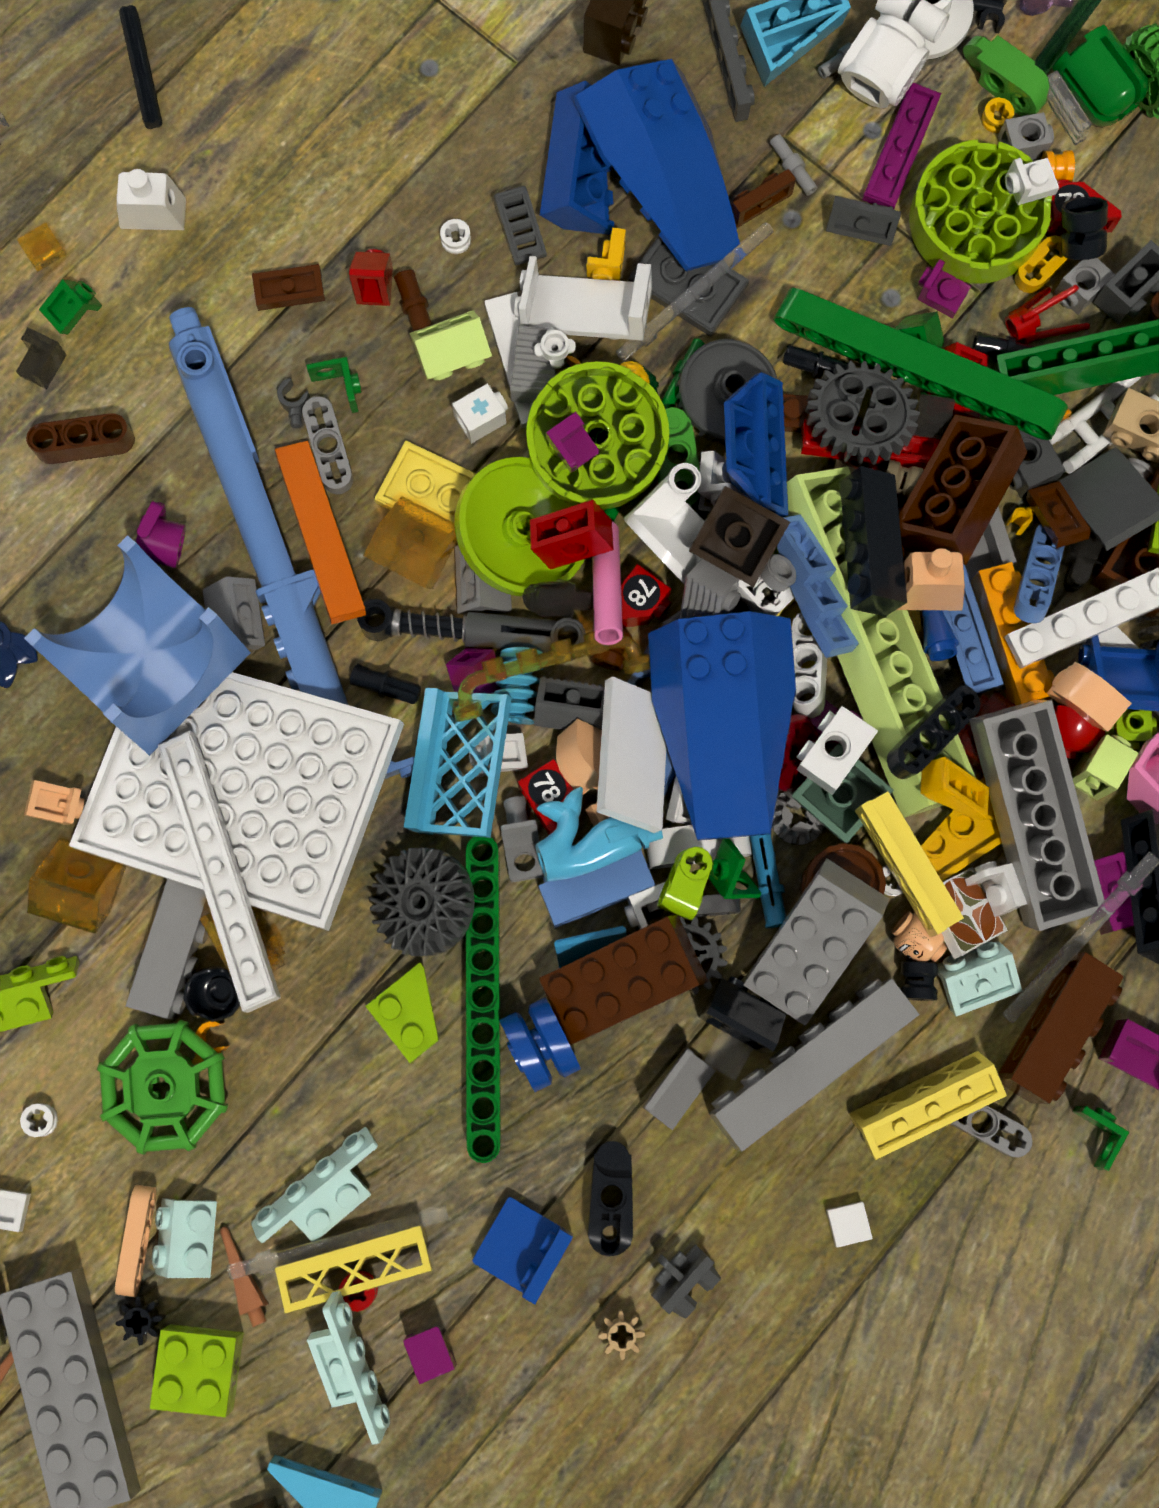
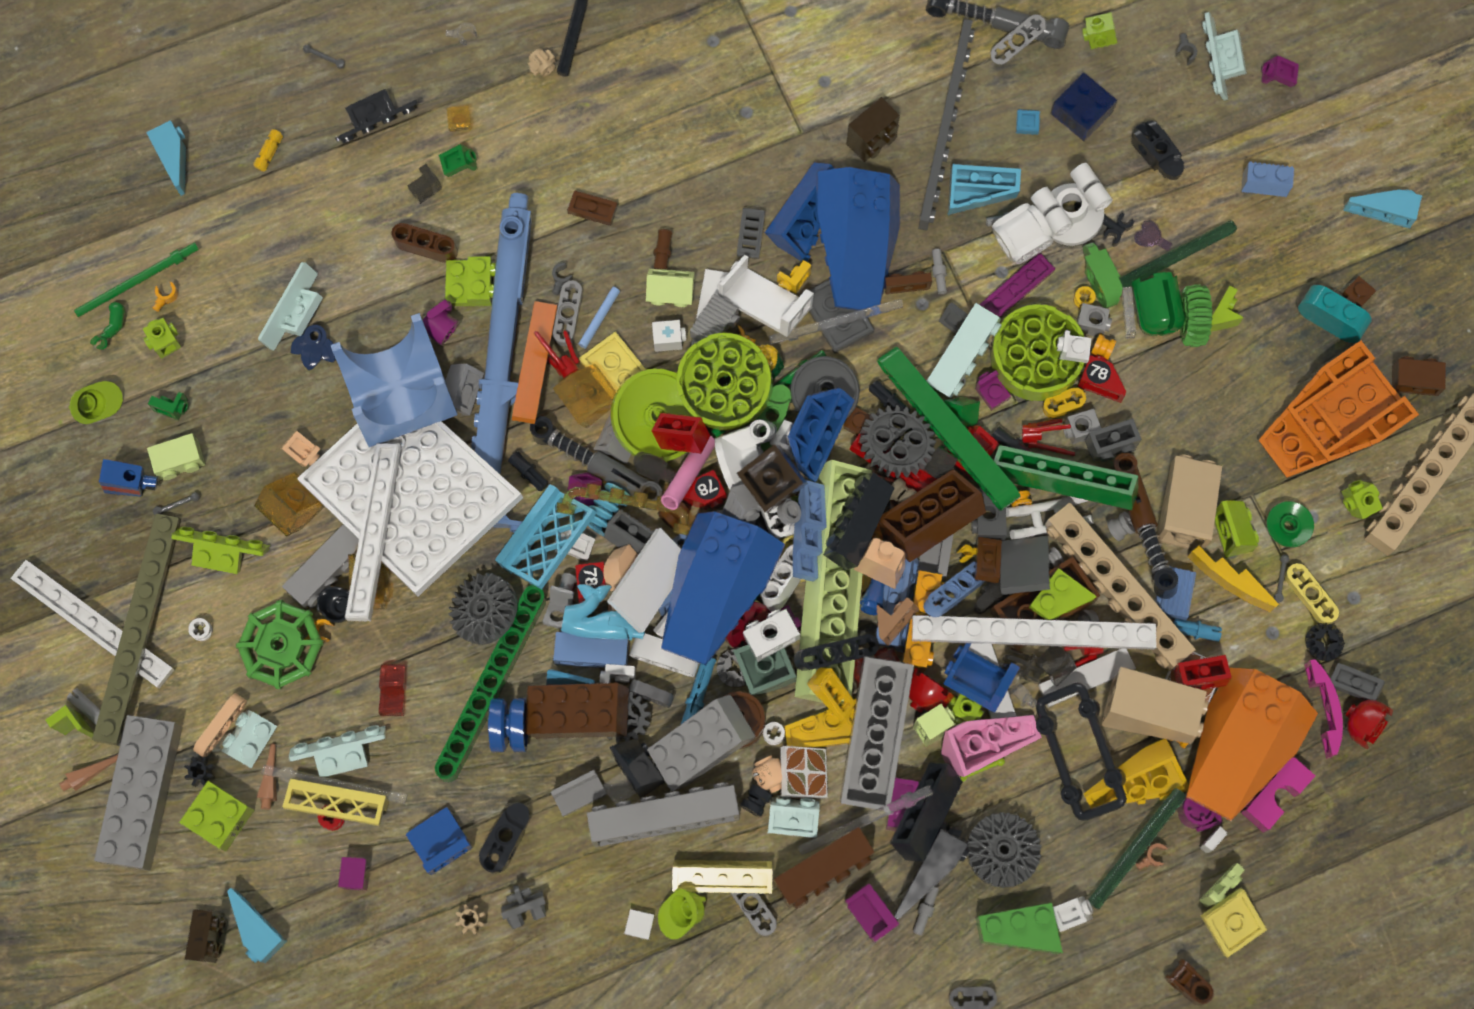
camera: 30 degrees right, 5 degrees down
(117, 119) = (541, 62): none -> tan gear
(149, 202) = (532, 120): white torso -> none
(171, 462) = (470, 281): none -> lime plate
(340, 368) = (600, 280): green bracket -> none
(344, 1369) = (300, 857): light aqua bracket -> none
(351, 1072) = (392, 689): none -> clear red slope
(361, 518) = (563, 365): none -> red plant
(371, 277) = (644, 224): red slope -> none
(373, 432) = (600, 315): none -> light blue bar
(407, 1014) = (442, 671): lime wing -> none
(464, 231) = (712, 228): white bush -> none
(551, 338) = (729, 310): white plate -> none
(572, 442) = (704, 378): magenta panel -> none
(685, 889) = (639, 674): lime piece -> none
(727, 872) = (669, 678): green bracket -> none
(886, 249) = (963, 351): none -> light aqua brick
(899, 1184) = (680, 913): none -> lime piece
(909, 864) = (781, 723): light yellow fence -> none
(985, 660) = (891, 626): none -> medium nougat slope
(1000, 886) = (835, 766): white bracket -> none
(1084, 228) = (1093, 392): black wheel -> none
(1089, 696) = (939, 674): light nougat brick -> none
(1104, 1121) = (826, 940): green bracket -> none

